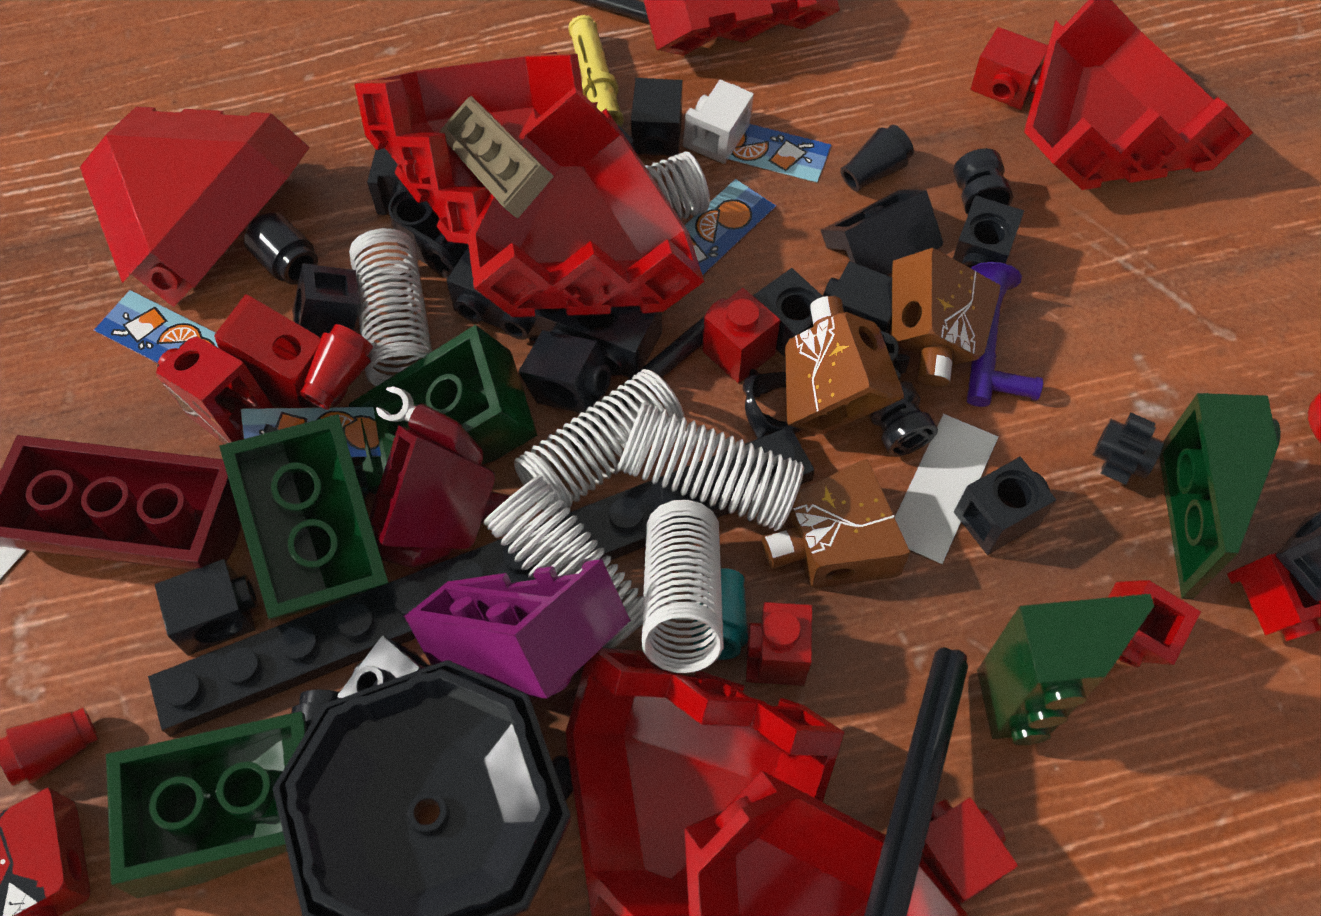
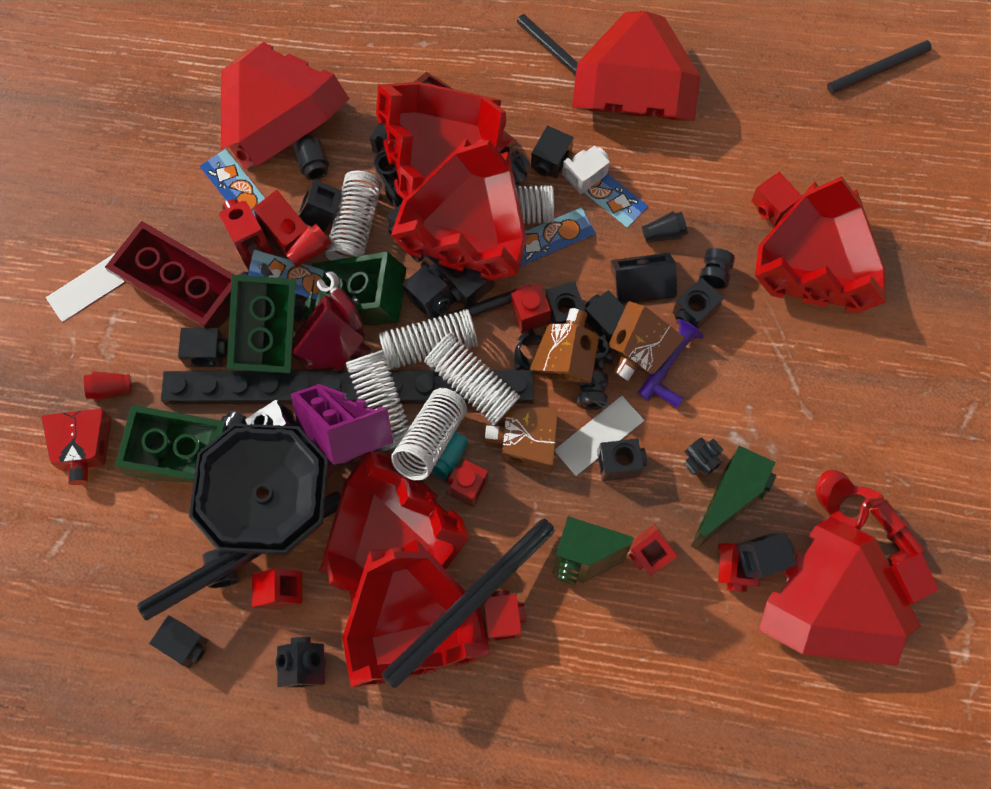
camera: 25 degrees right, 10 degrees up
(495, 157) = (434, 158): dark tan tile -> none
(597, 82) = (529, 117): light yellow pin -> none

